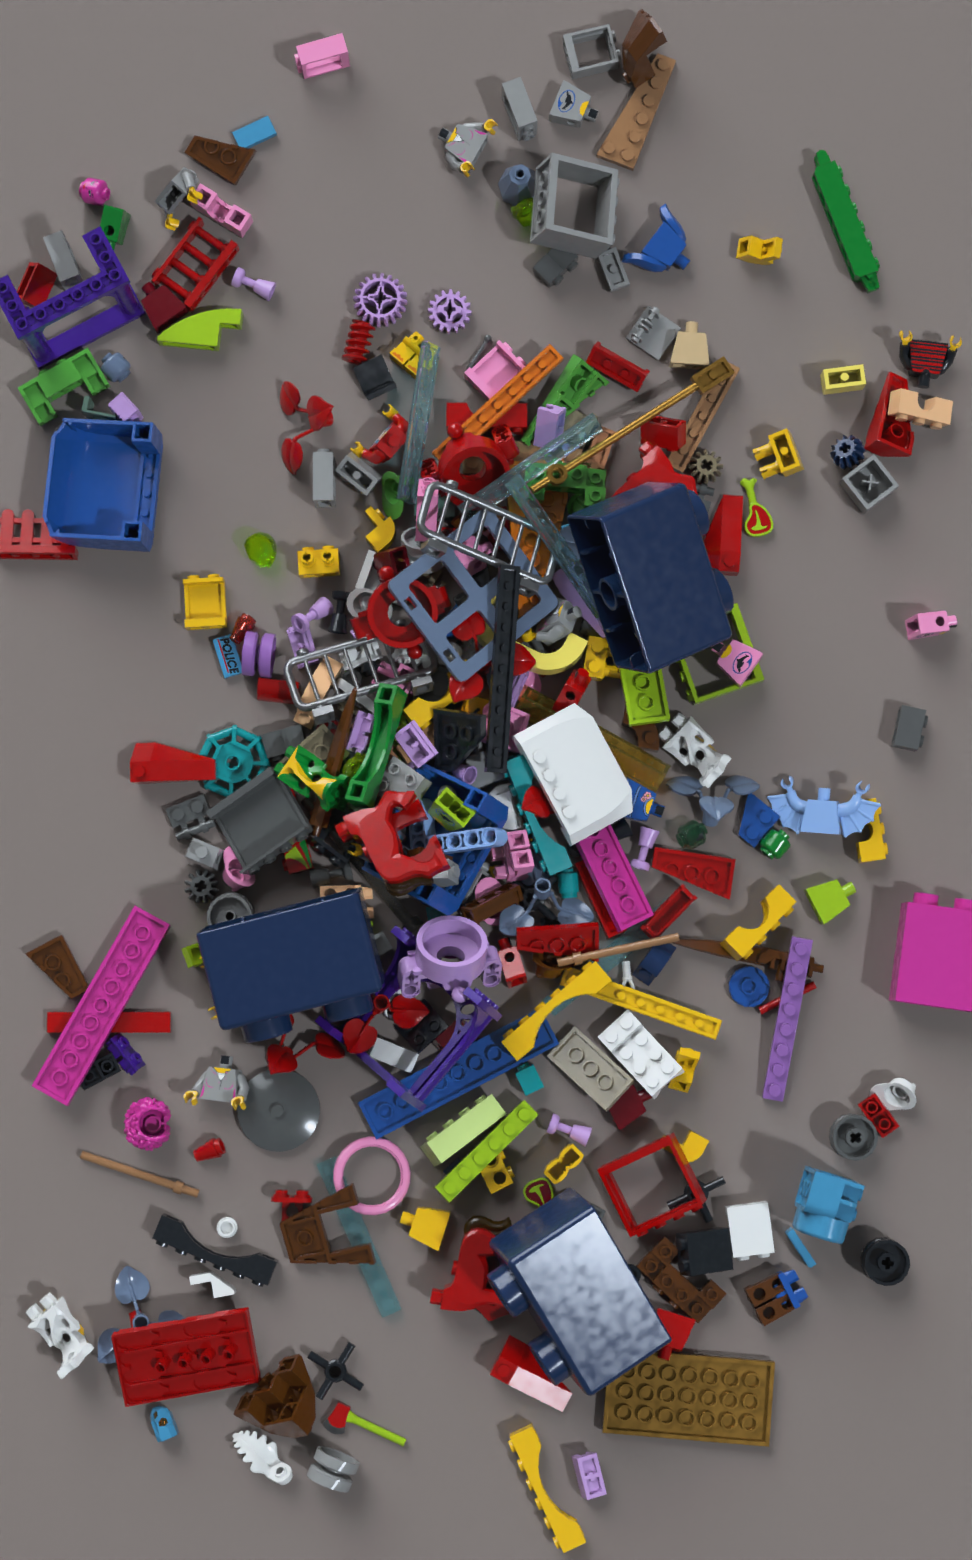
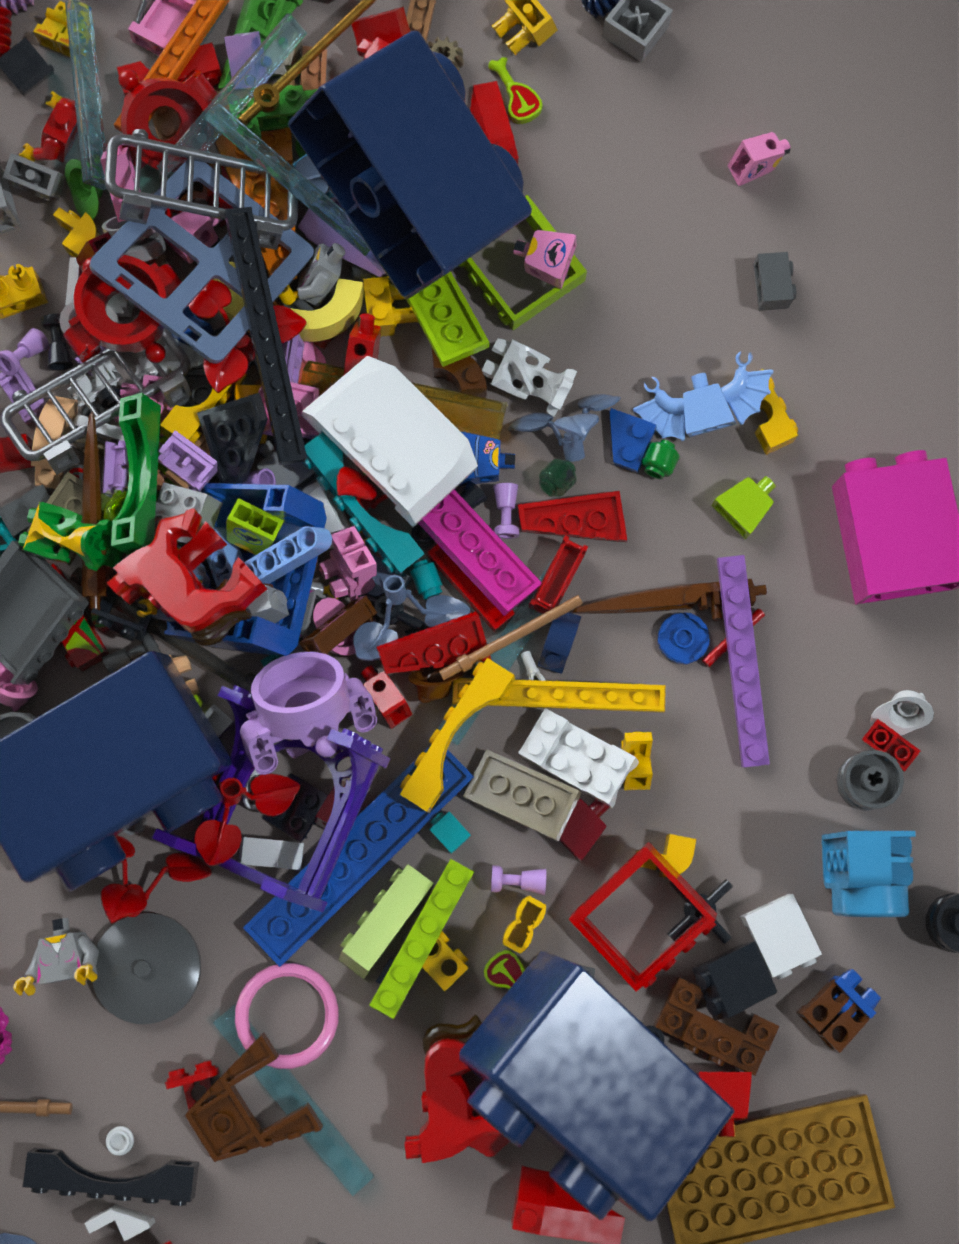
camera: 20 degrees left, 5 degrees down
(212, 1149) = (72, 1046): red cone -> none
(427, 1225) = (375, 1057): yellow torso -> none
(774, 905) = (658, 579): yellow arch -> none
(799, 1246) = (850, 938): dark azure tile -> none

